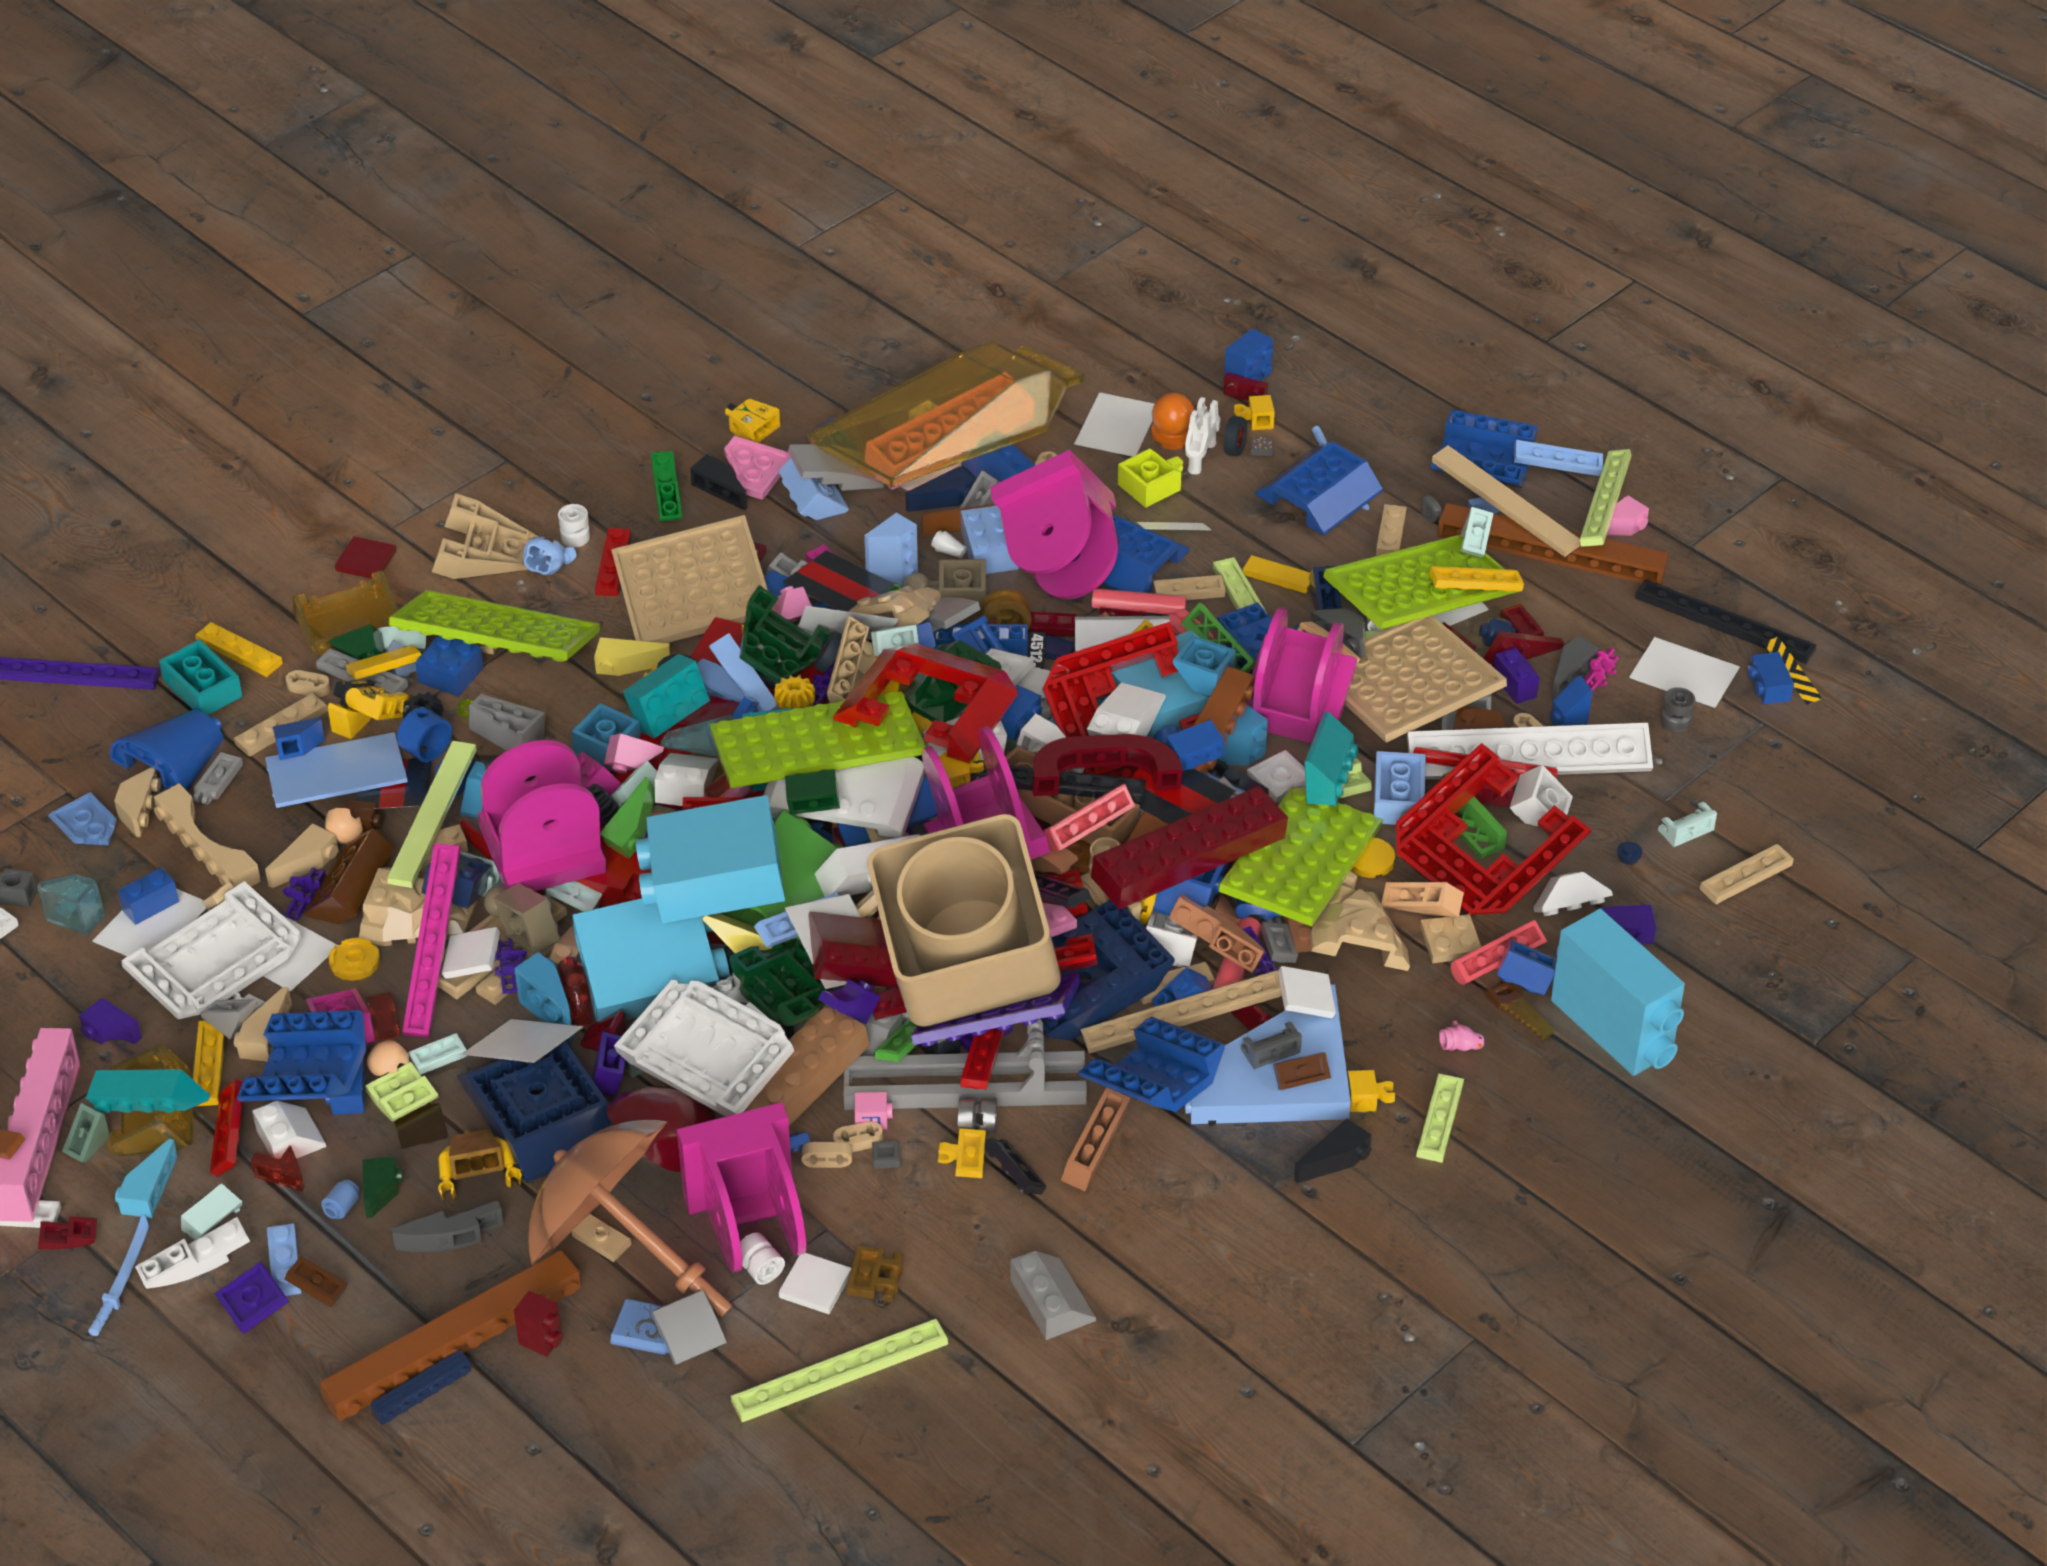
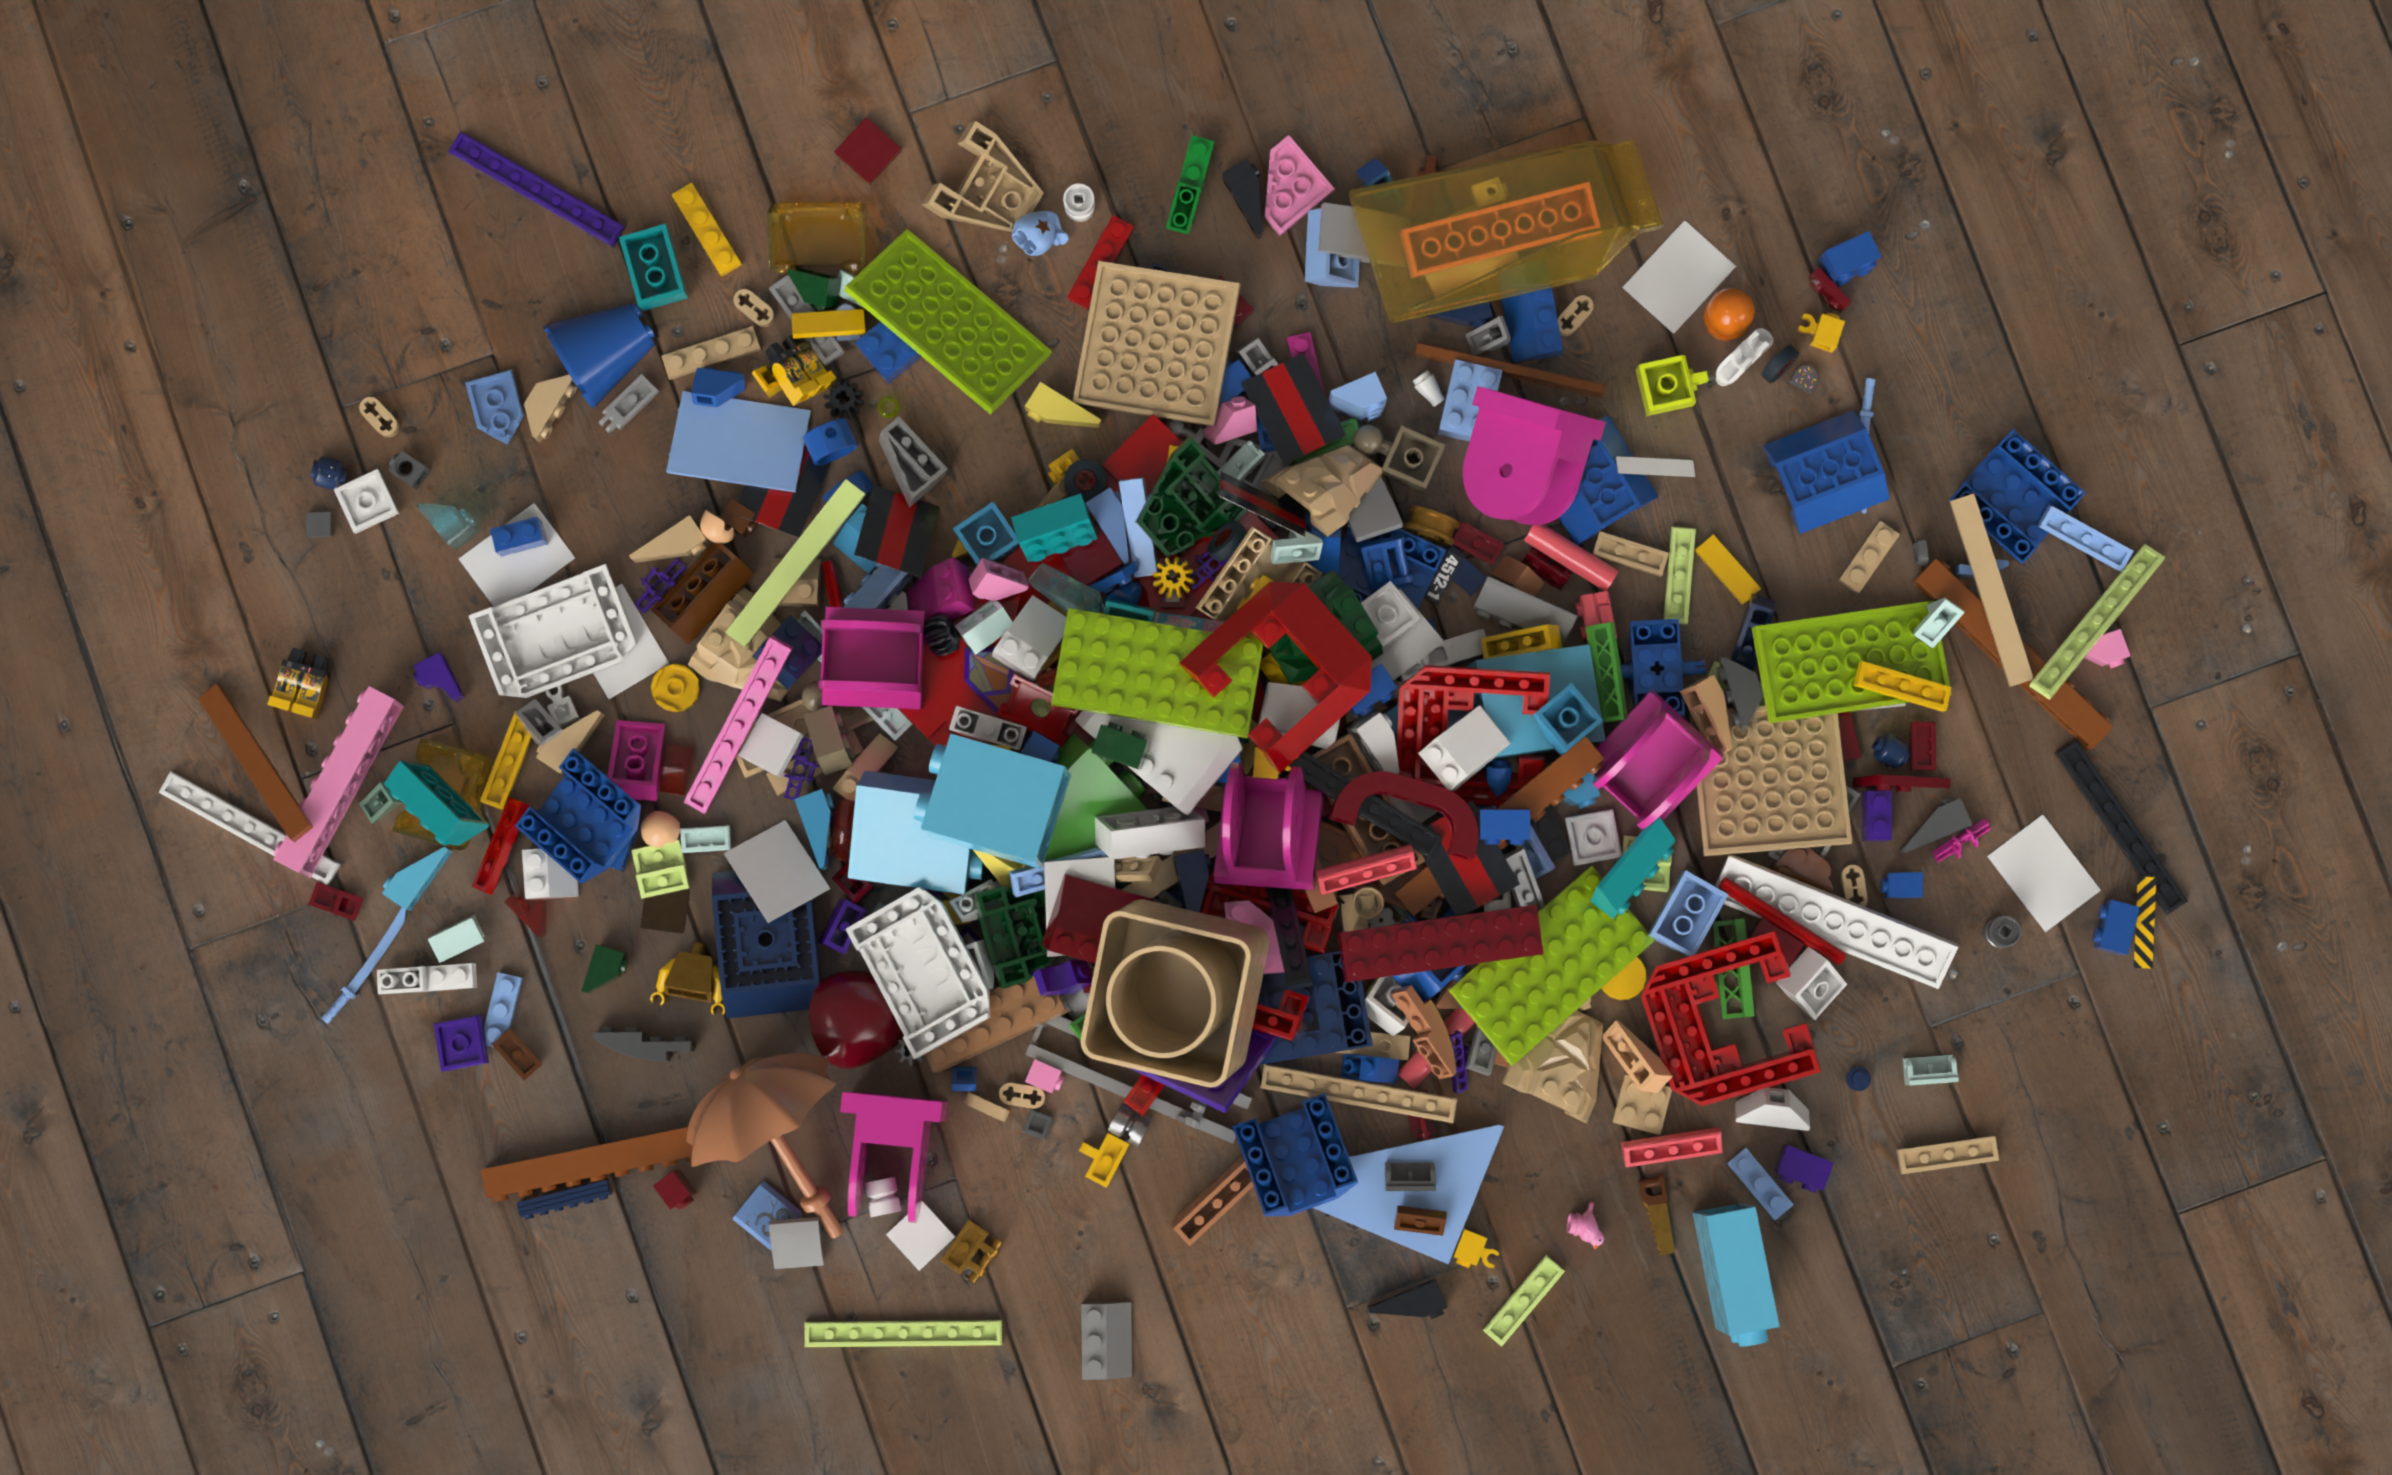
camera: 25 degrees right, 40 degrees up
(217, 896) = (581, 560): tan plate -> none
(228, 864) = (581, 435): tan arch -> none
(340, 1199) = (567, 970): medium blue brick -> none
(630, 820) = (959, 675): bright green slope -> none
(753, 420) = (1315, 117): yellow torso -> none
(1015, 1166) = (1137, 1192): black hinge -> none
(1306, 992) = (1469, 1134): white tile -> none
(1526, 967) = (1683, 1184): blue brick -> none

